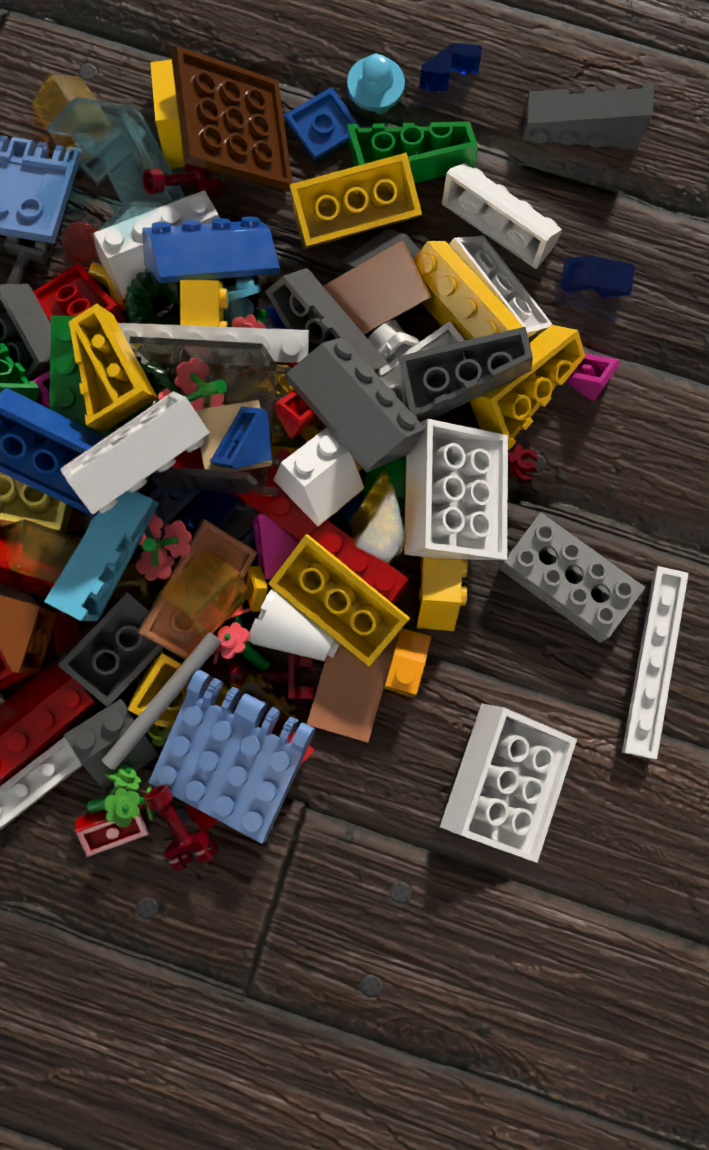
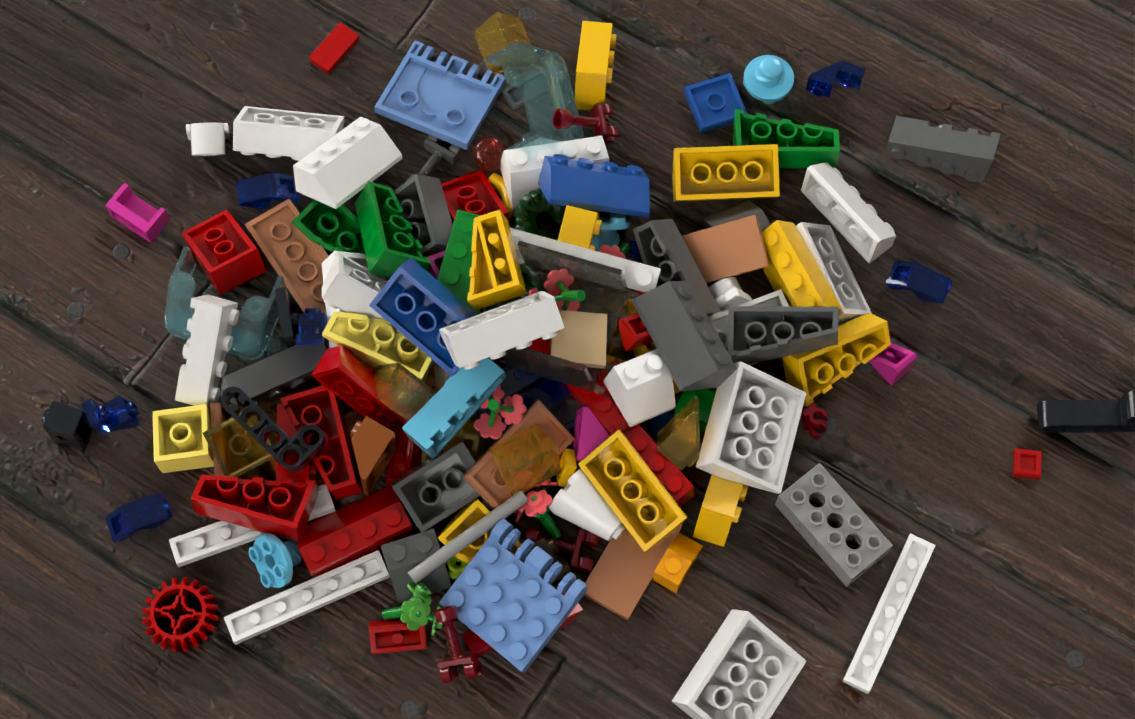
camera: 15 degrees right, 10 degrees down
(230, 119) = (639, 84): reddish brown plate -> none
(245, 440) = (589, 342): blue slope -> none

